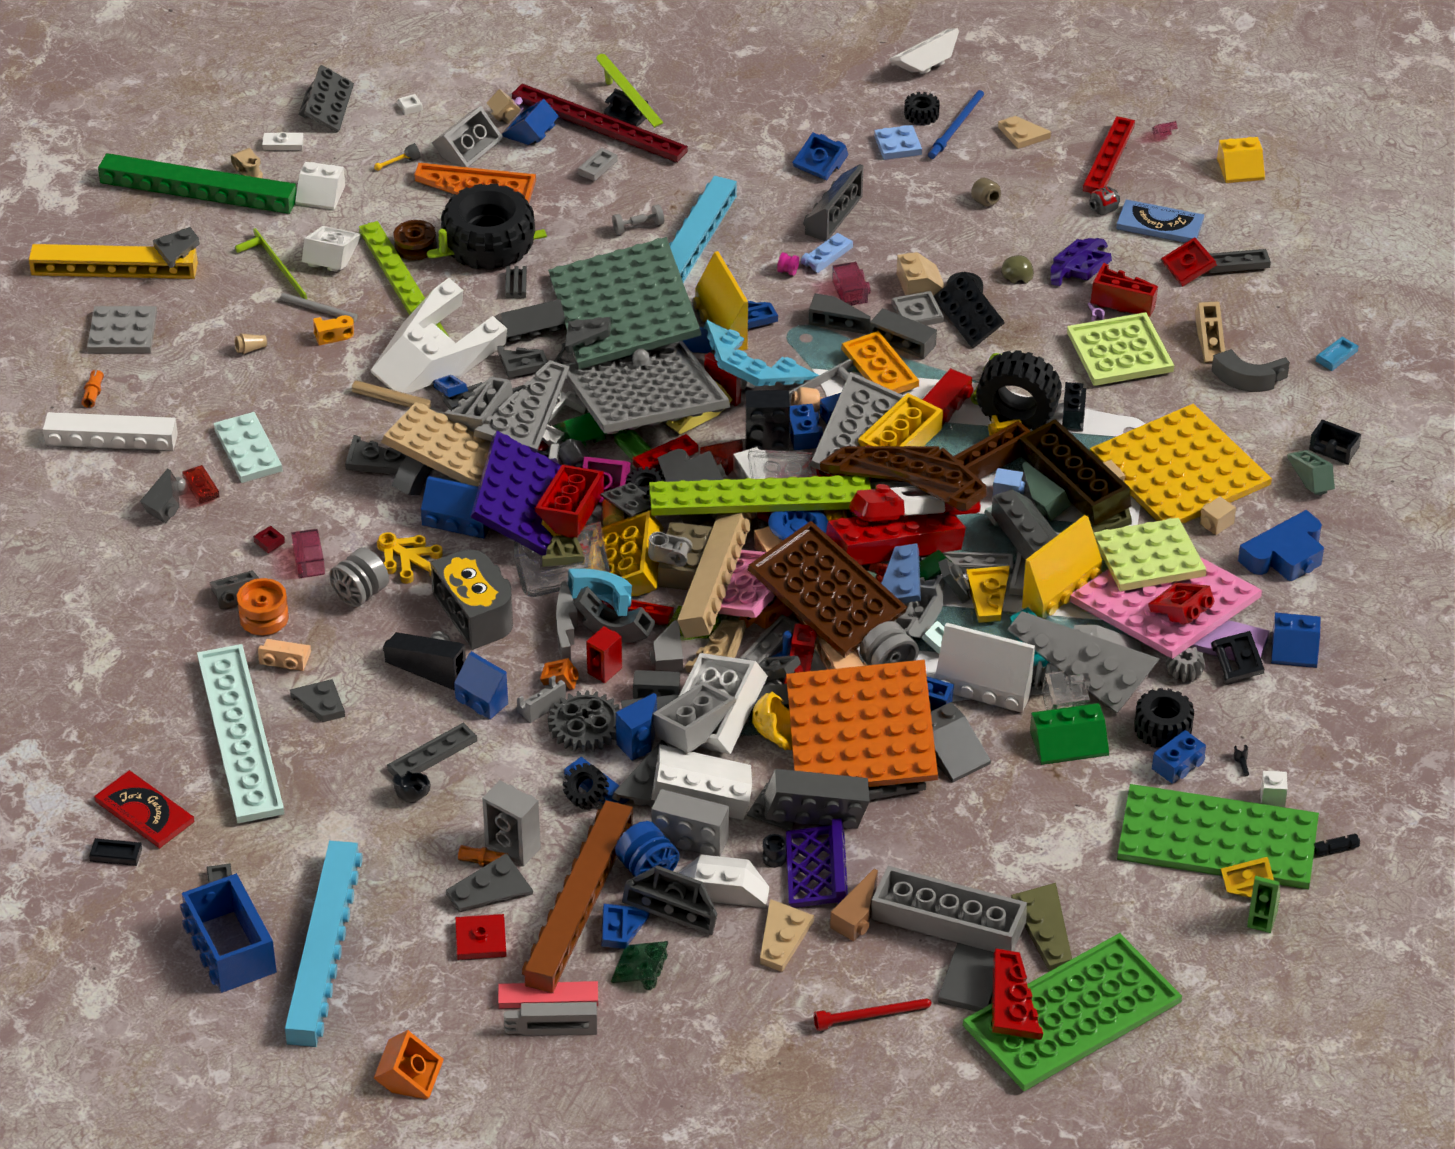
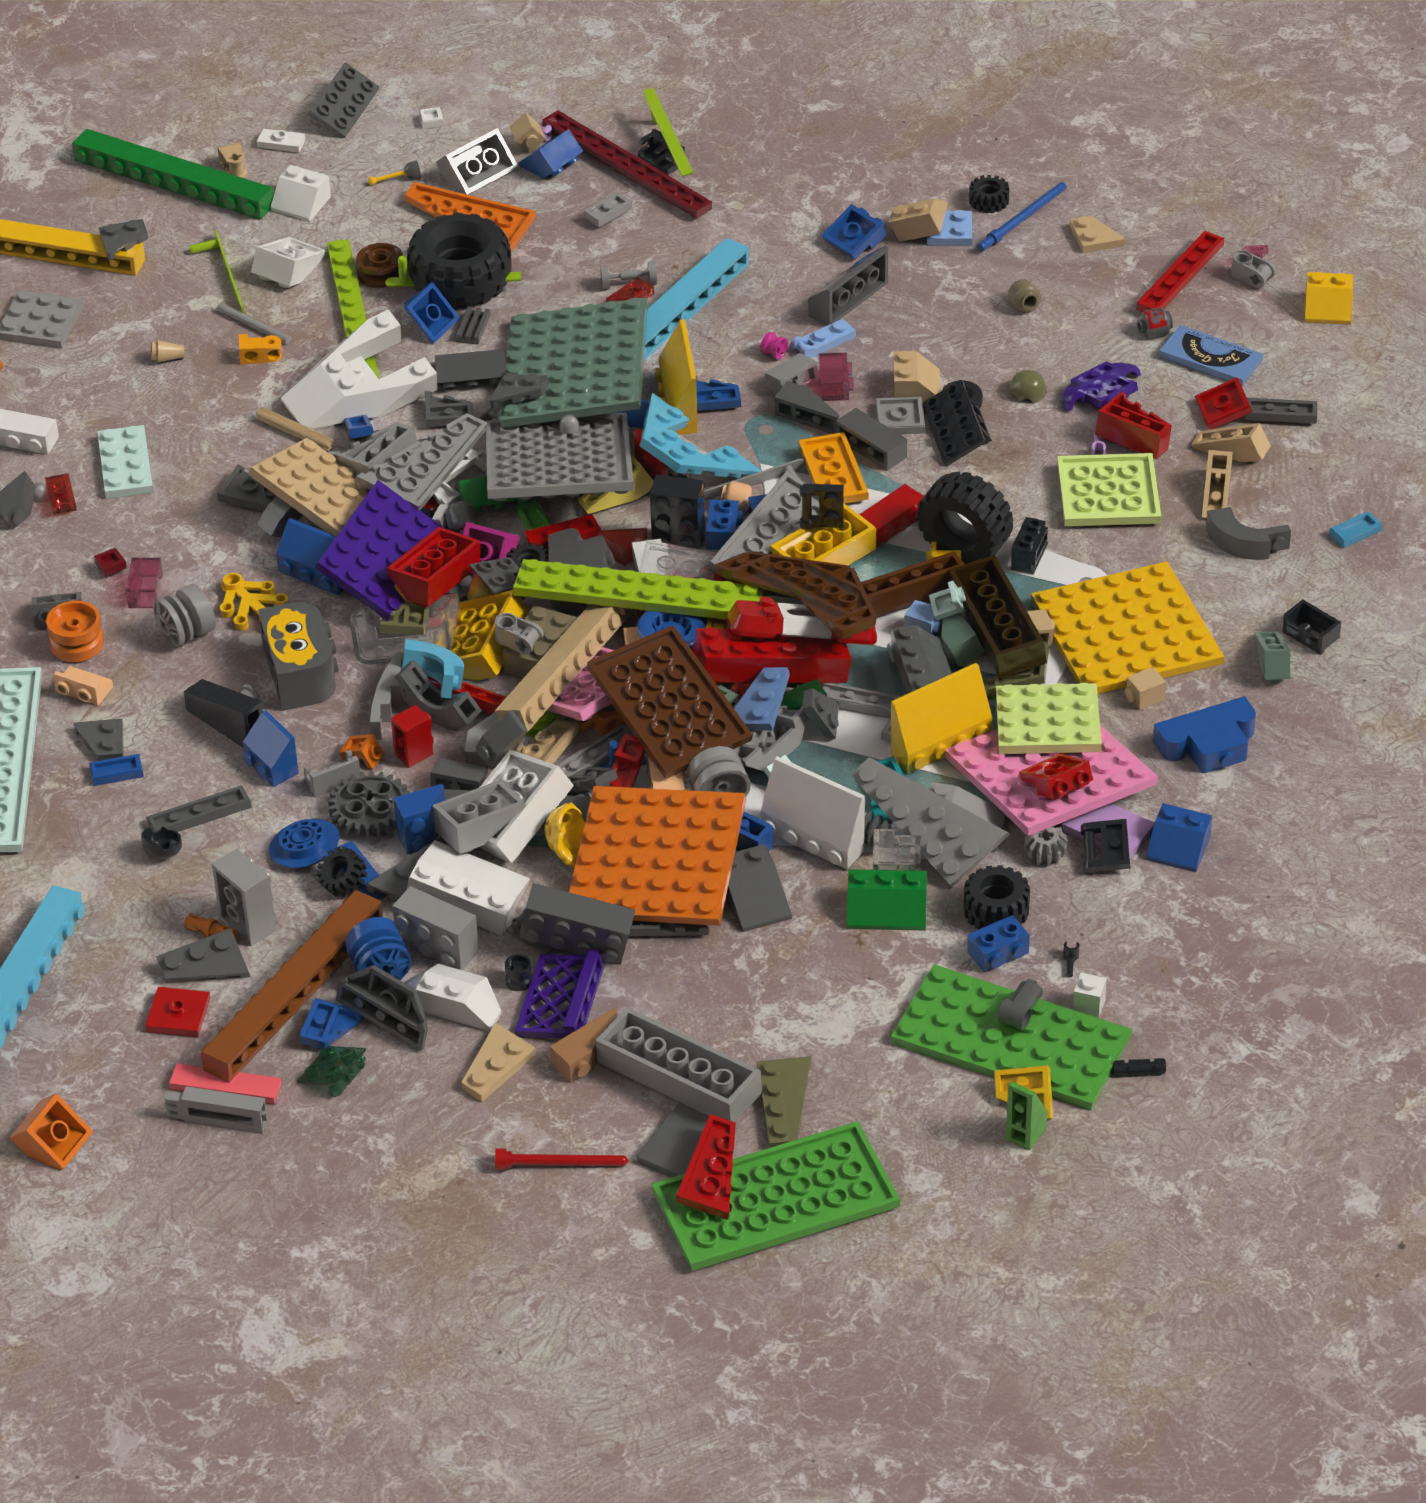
camera: 15 degrees right, 0 degrees up
(342, 726) = (116, 769): none -> blue tile
(477, 275) = (431, 312): none -> blue slope
(539, 766) = (304, 843): none -> blue wheel
(646, 233) = (636, 289): none -> clear red plate
(691, 644) = (501, 738): none -> dark grey slope
(816, 281) = (797, 370): none -> light grey hinge
(873, 138) = (918, 219): none -> tan slope
(903, 397) = (830, 506): none -> black plate
(927, 53) = (1016, 133): white wedge -> none
(988, 591) = (858, 732): yellow wing -> none
(1030, 465) = (947, 601): none -> light aqua bracket
(1165, 143) = (1249, 269): none -> light grey piece
(1219, 289) = (1245, 442): none -> tan slope
(1222, 809) = (1019, 1007): none -> dark grey piece

